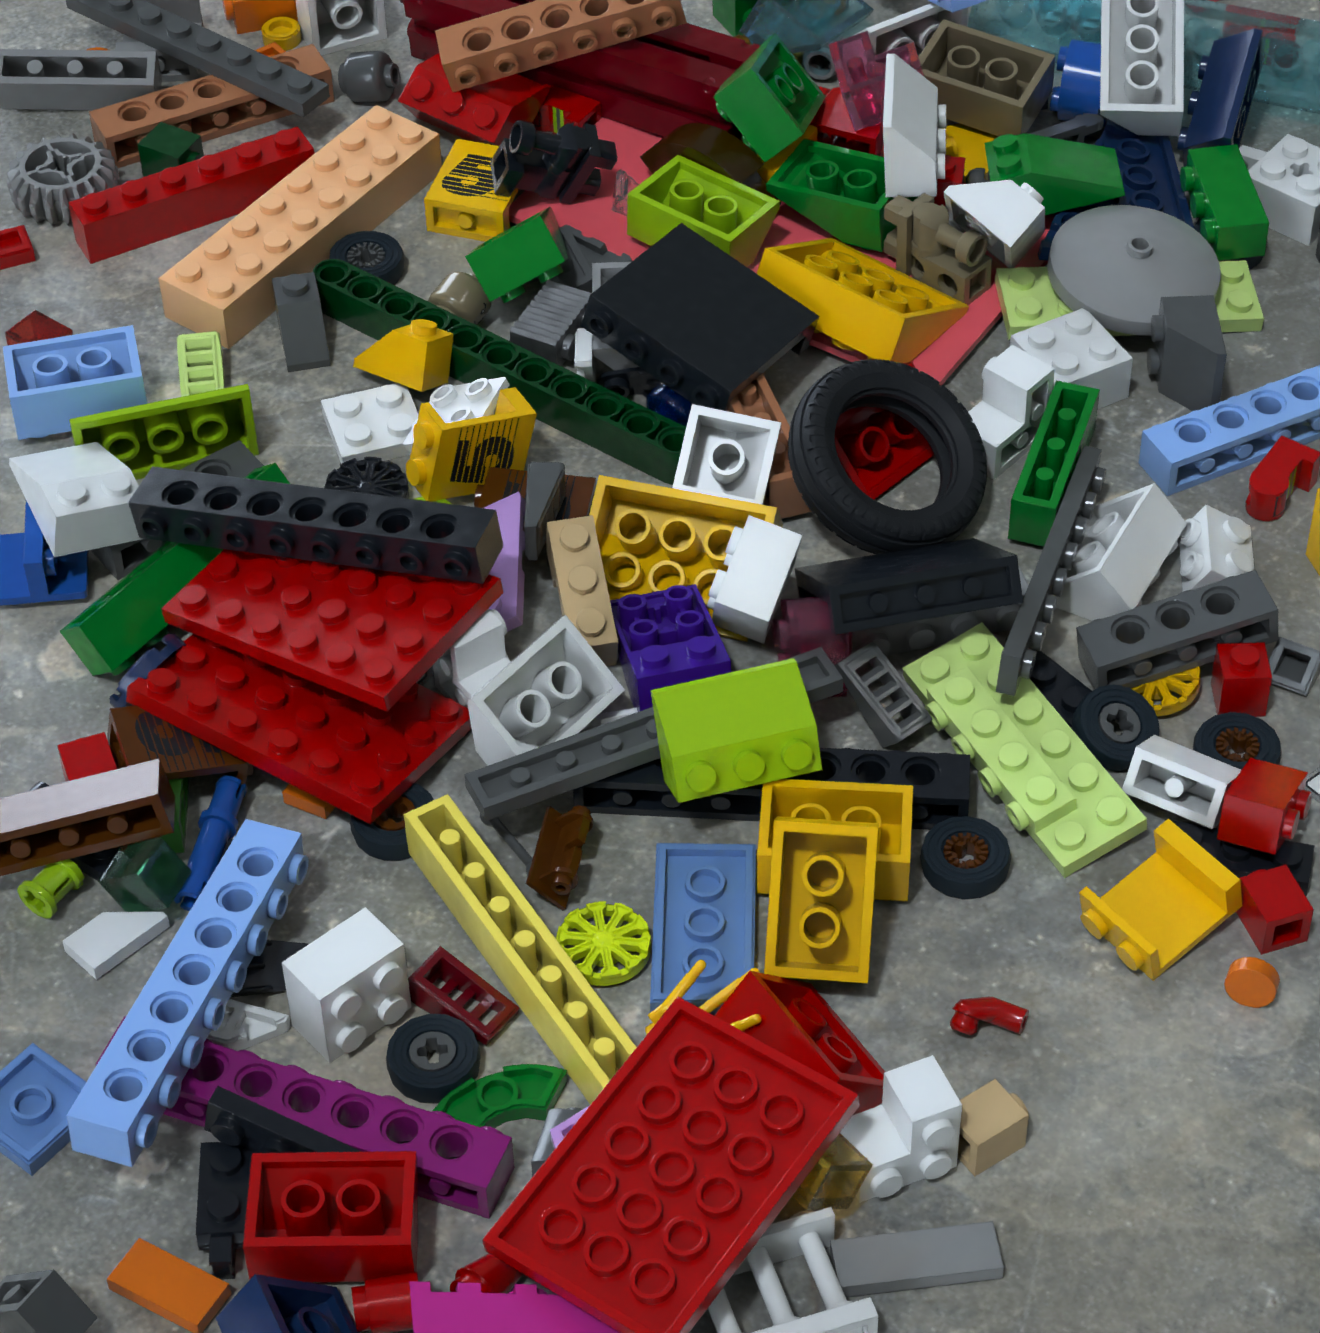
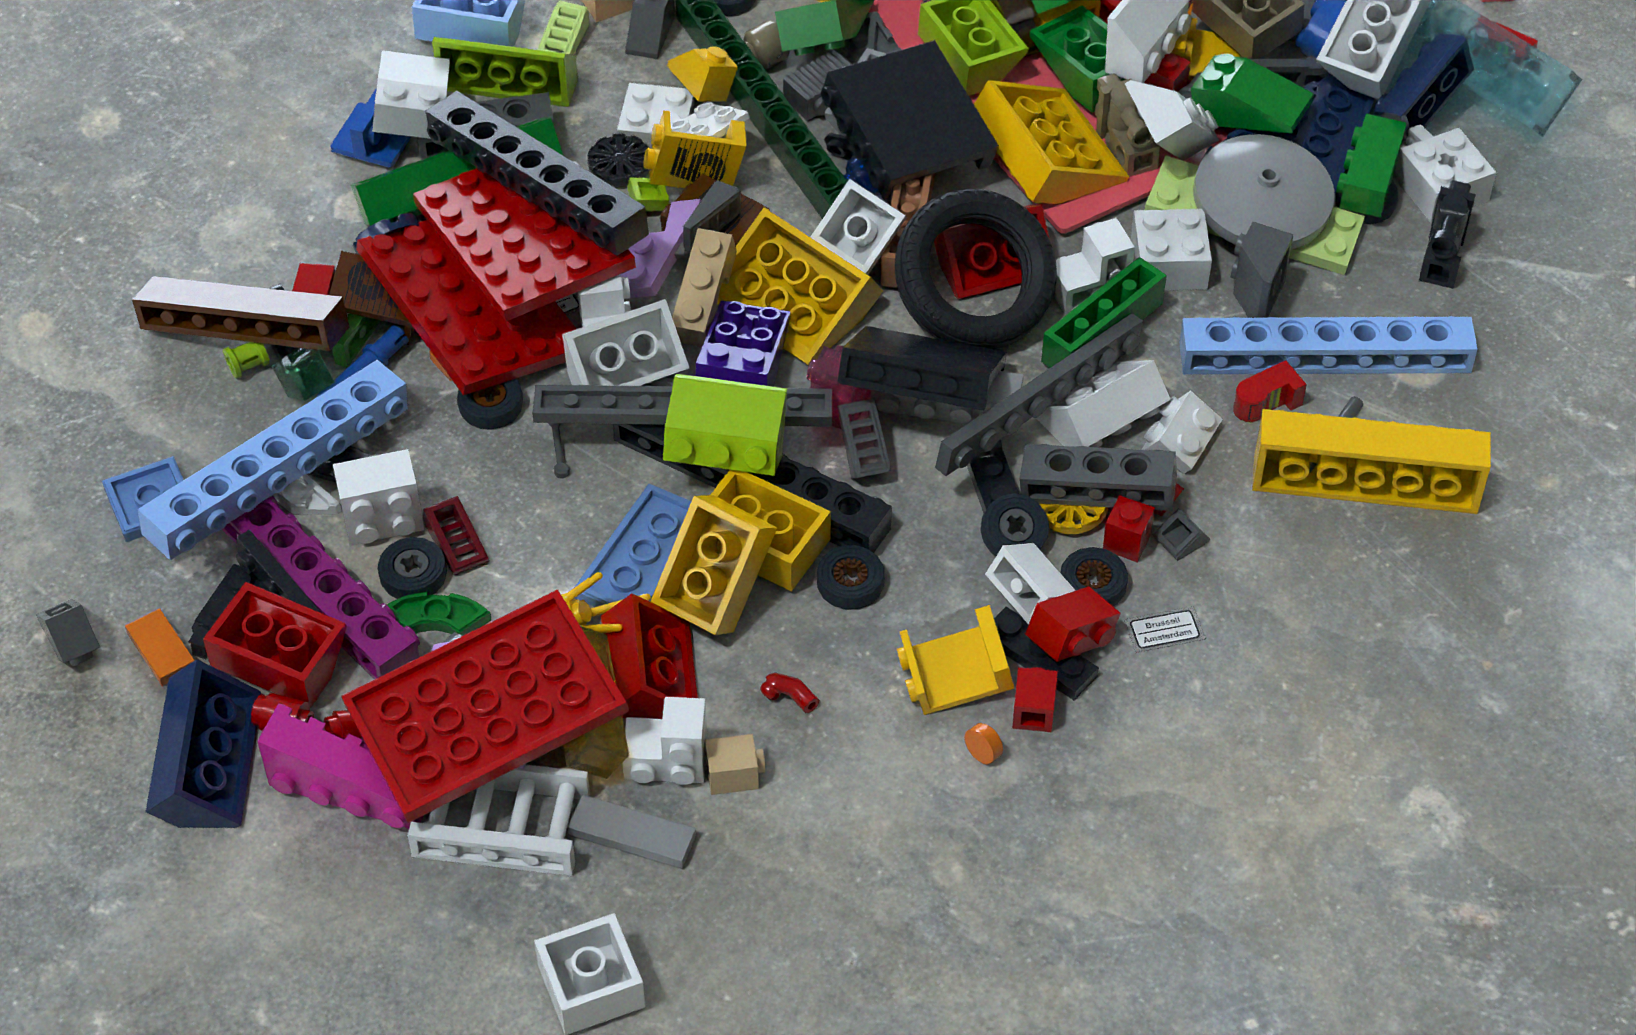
camera: 25 degrees right, 5 degrees up
(113, 938) = (263, 407): white tile -> none
(517, 945) = (504, 505): light yellow brick -> none
(559, 854) = (577, 465): reddish brown hinge -> none
(584, 359) = (819, 125): white tile -> none
(606, 943) = (569, 537): neon yellow wheel -> none
(756, 578) = (819, 319): white brick -> none
(1024, 753) = (936, 523): yellowish green plate -> none

